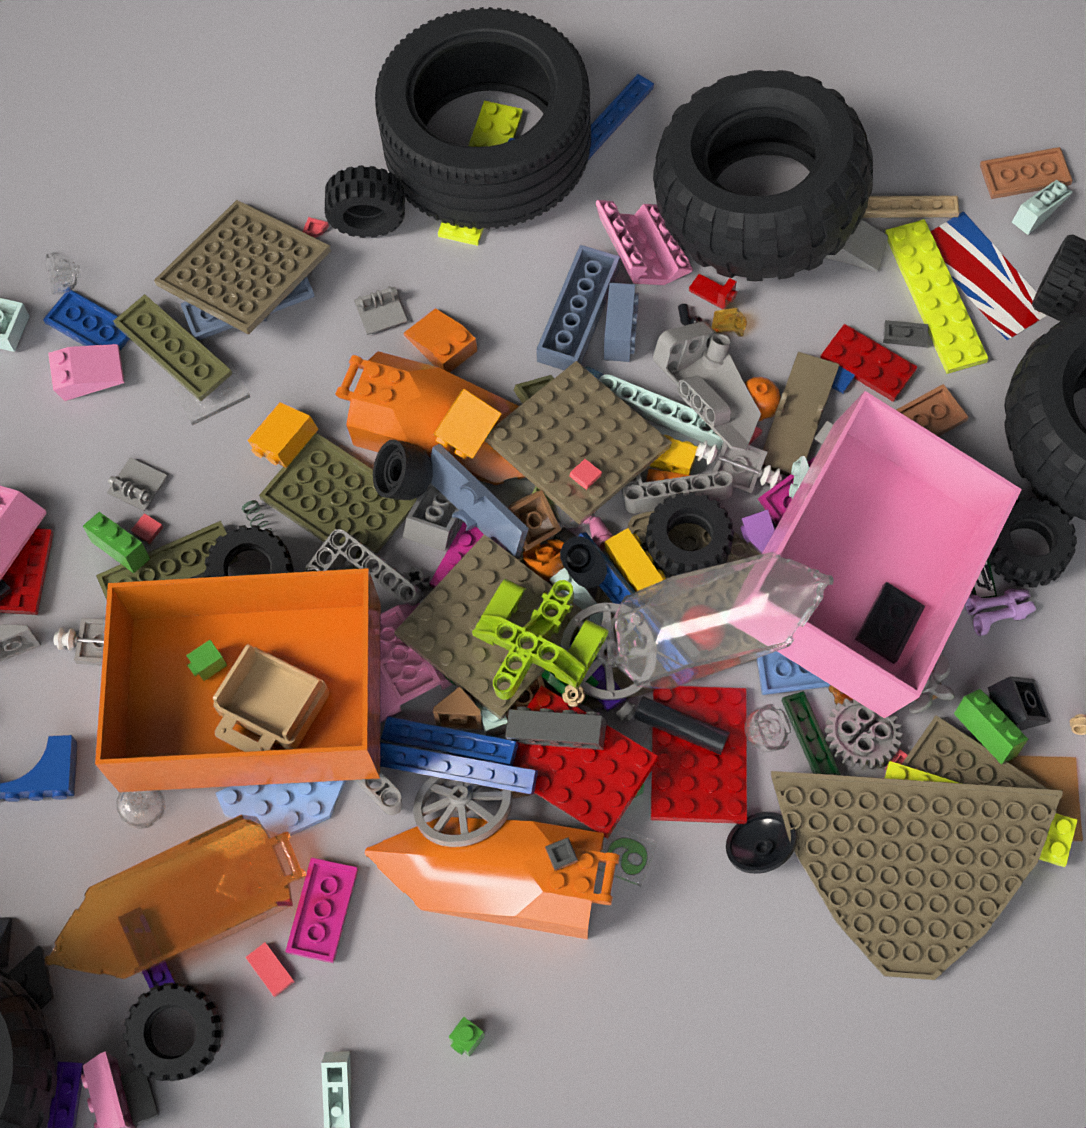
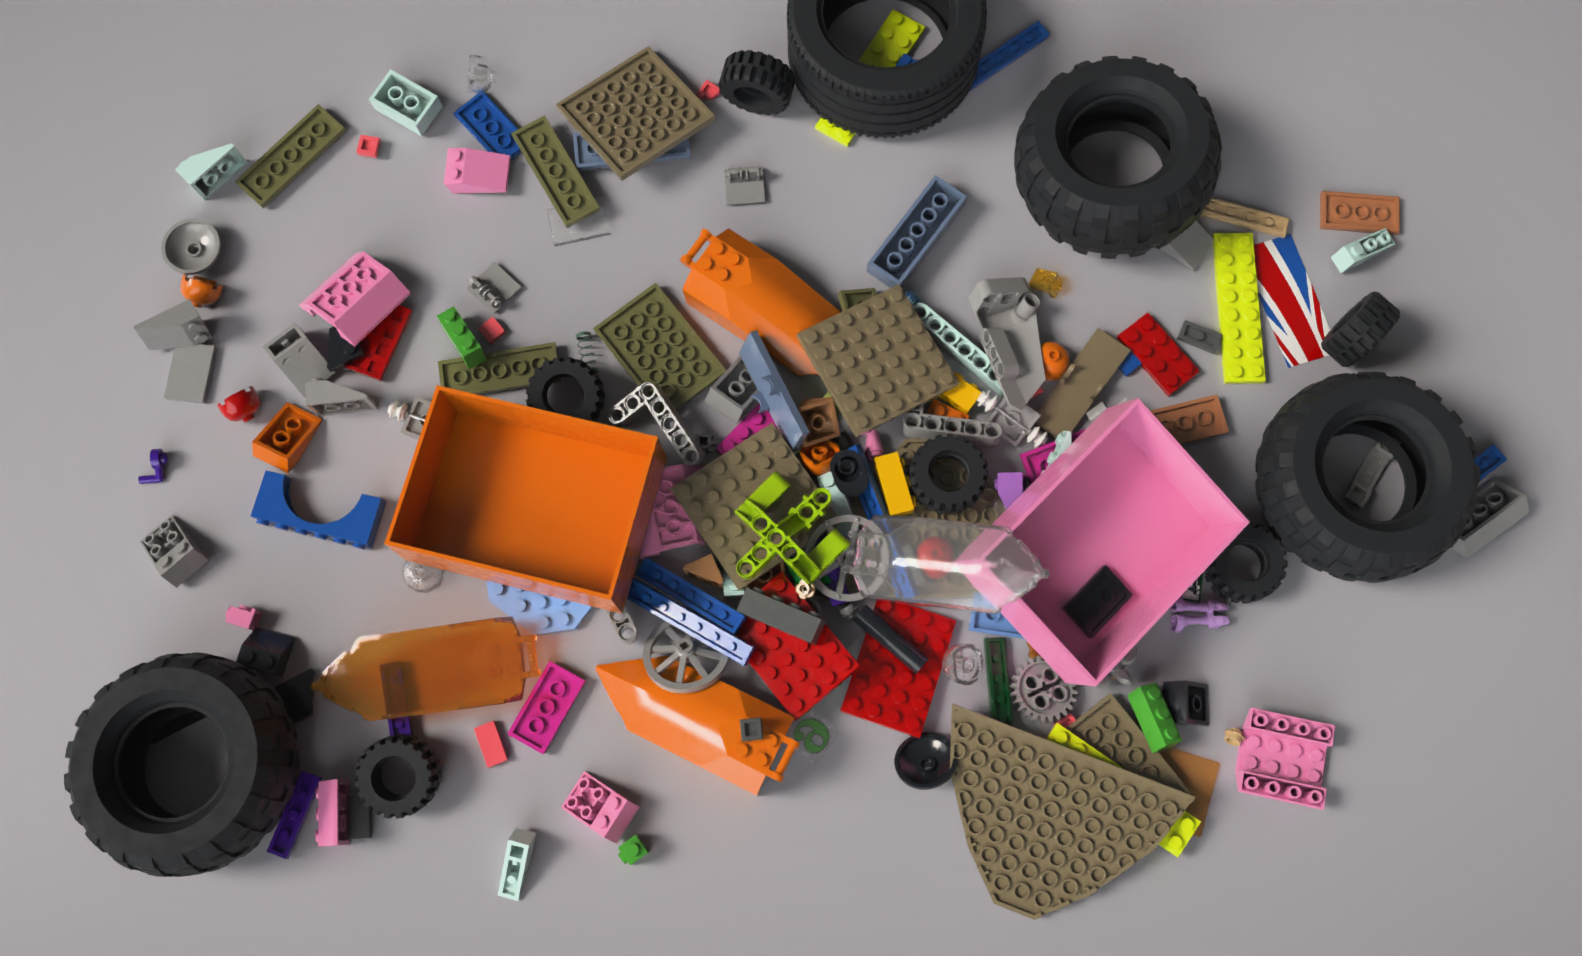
camera: 15 degrees right, 10 degrees up
(205, 660) = (505, 469): bright green brick -> none
(268, 700) = (548, 520): tan piece -> none
(282, 435) = (627, 279): light orange brick -> none
(401, 471) = (718, 345): black piece -> none
(415, 1001) = (600, 807): none -> bright pink slope
(442, 340) = (789, 229): orange slope -> none
(466, 424) = (784, 320): light orange brick -> none
(585, 474) = (874, 395): coral tile -> none
(621, 322) = (949, 257): sand blue brick -> none
(644, 244) = (992, 189): bright pink slope -> none
(685, 317) = (1009, 269): black arm -> none
(714, 292) = (1041, 249): red bracket -> none

